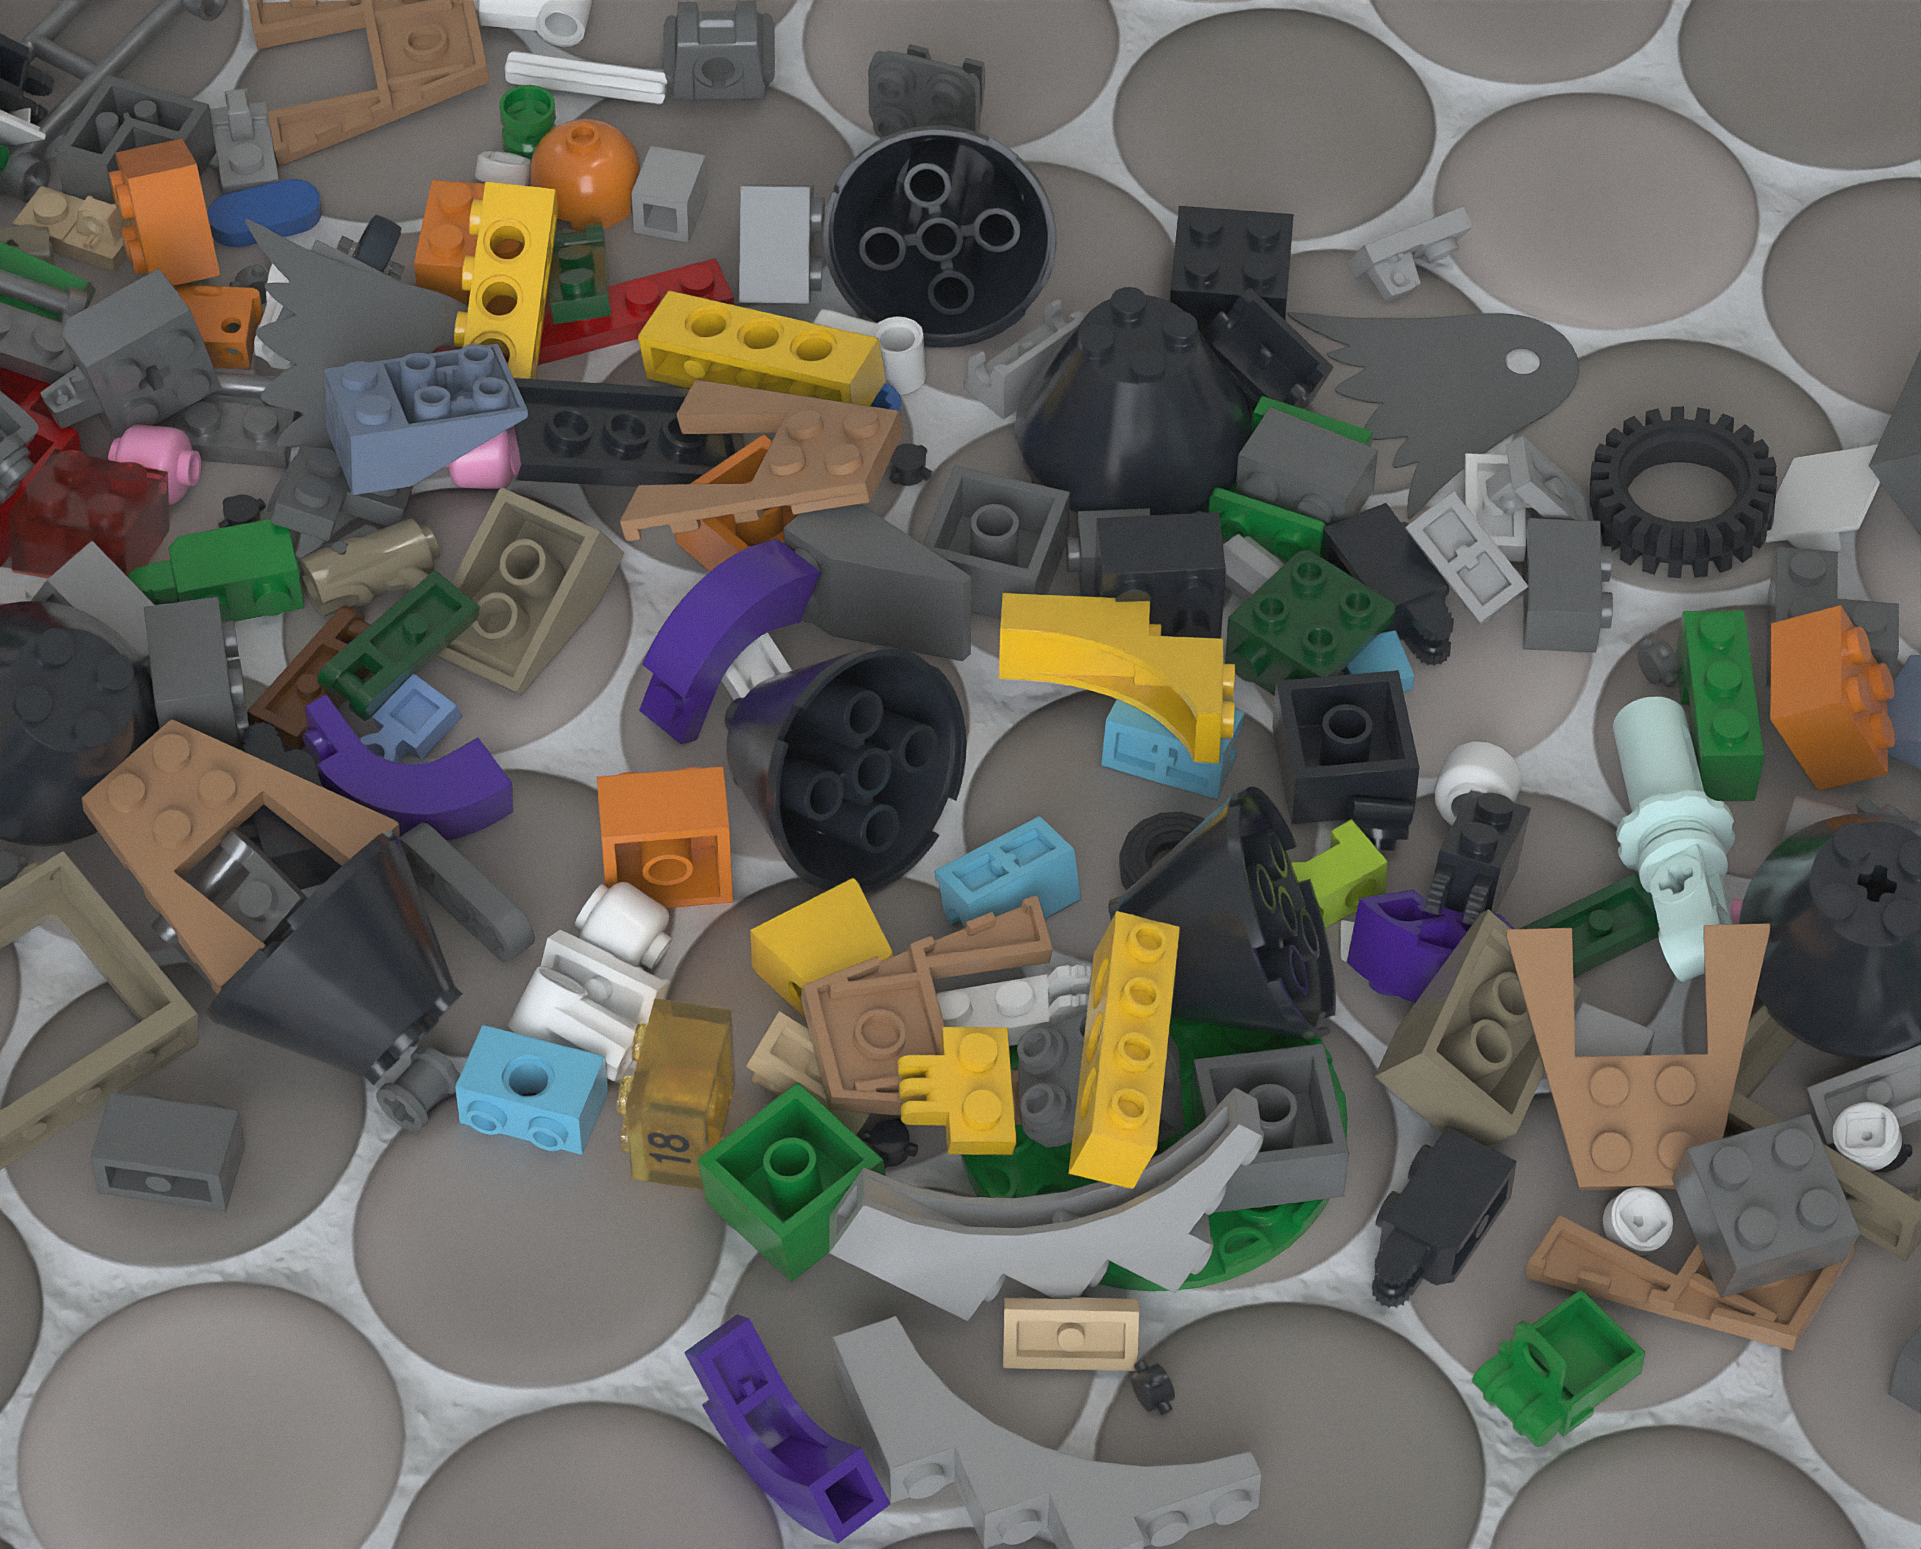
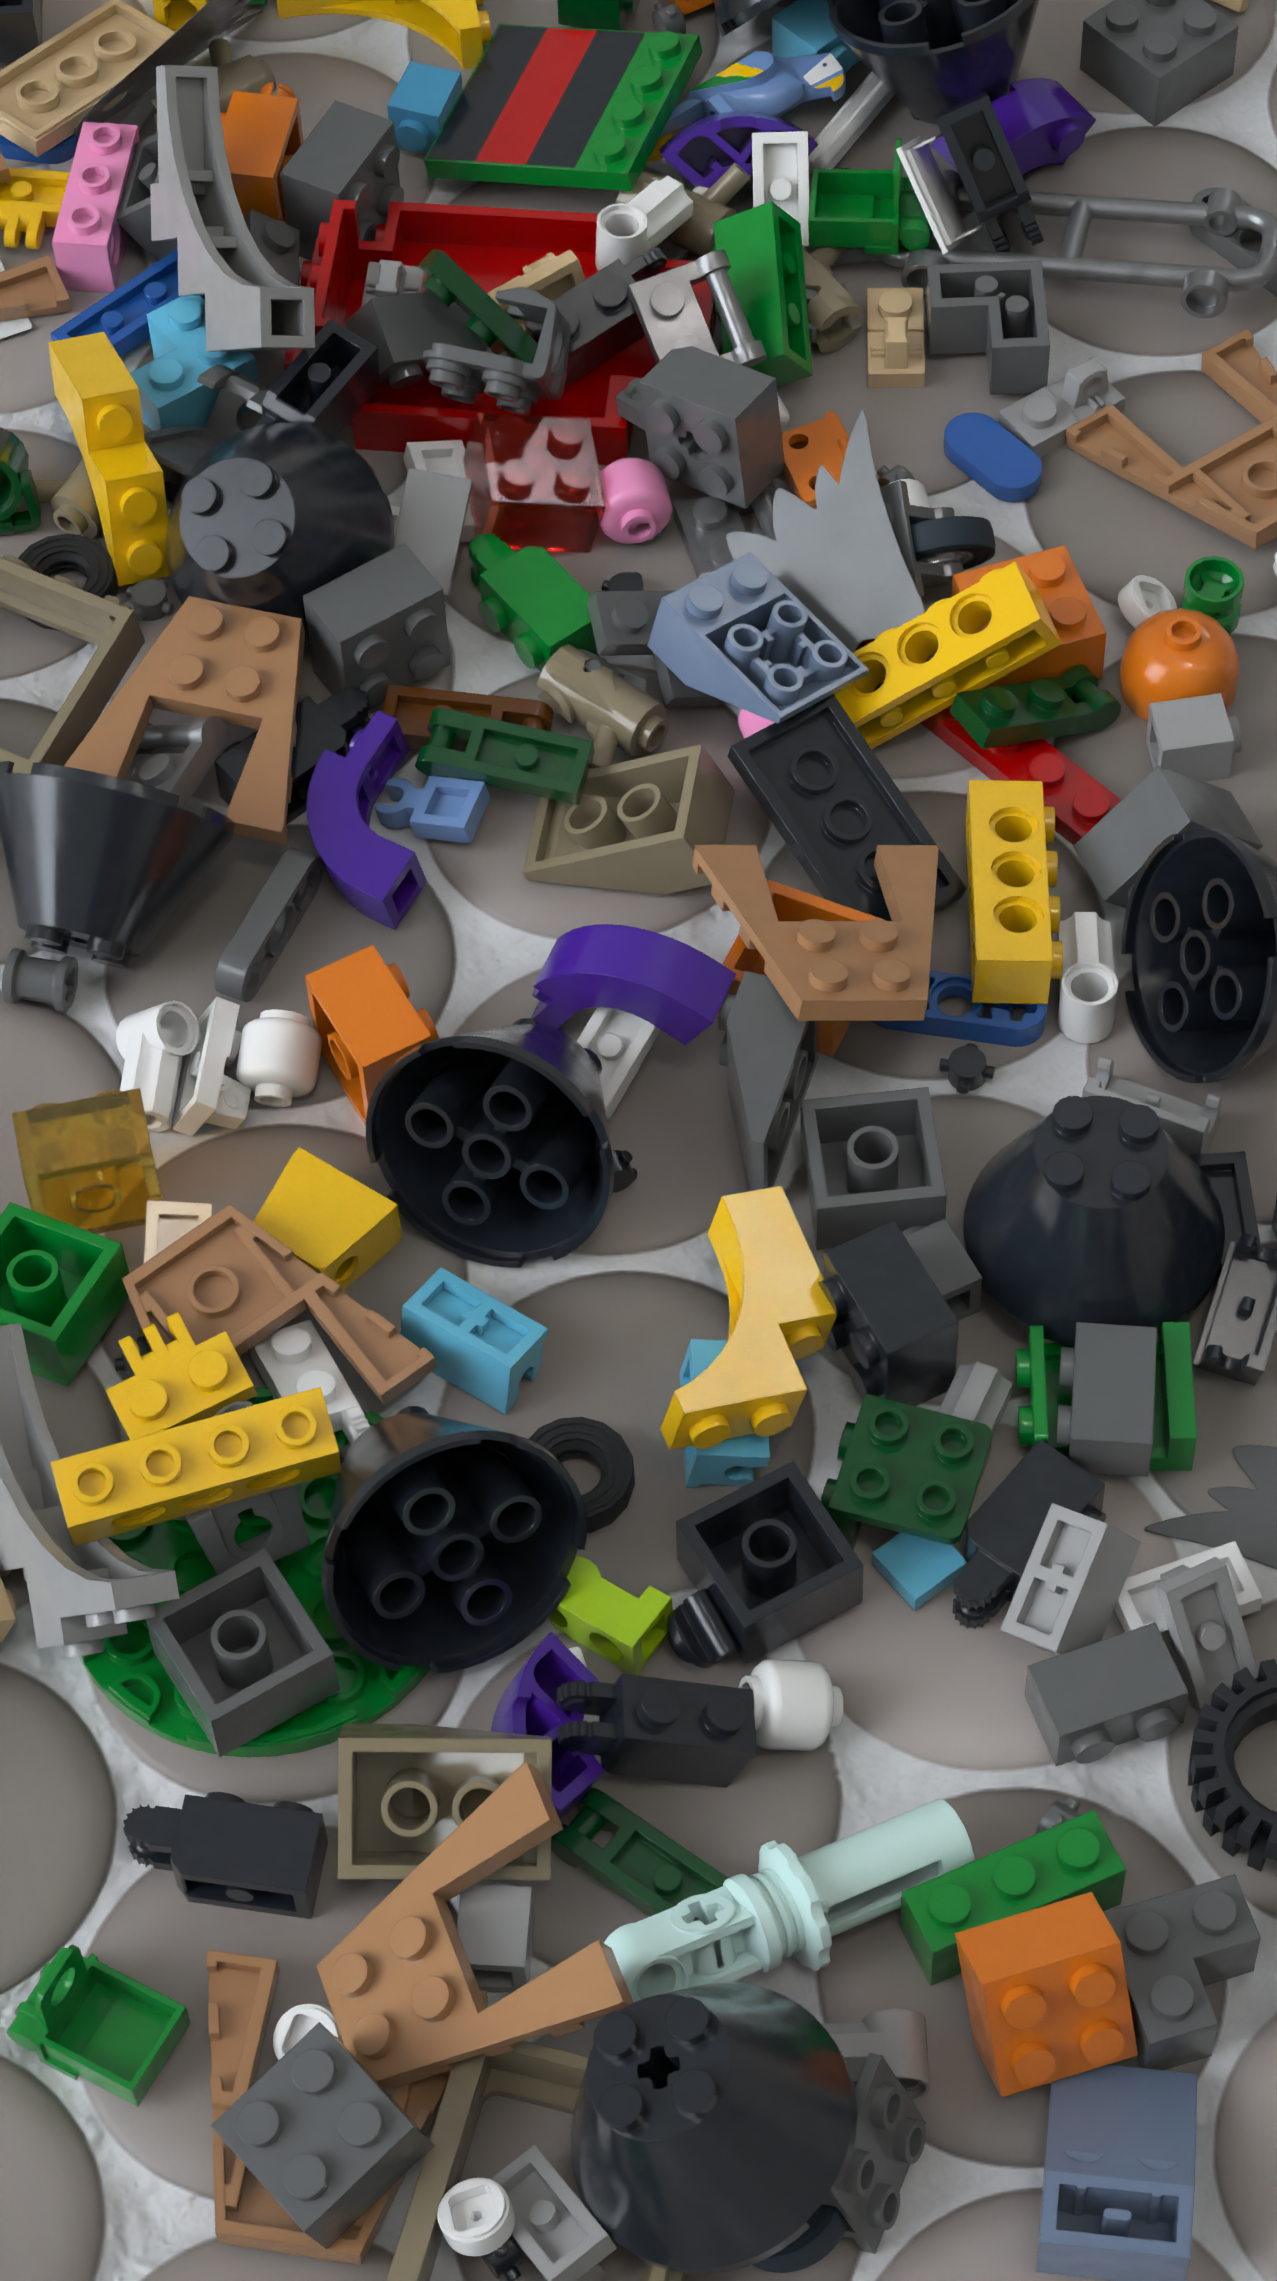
camera: 70 degrees right, 5 degrees up
(166, 211) = (901, 370): orange brick -> none
(509, 1065) = (60, 1030): medium azure brick -> none

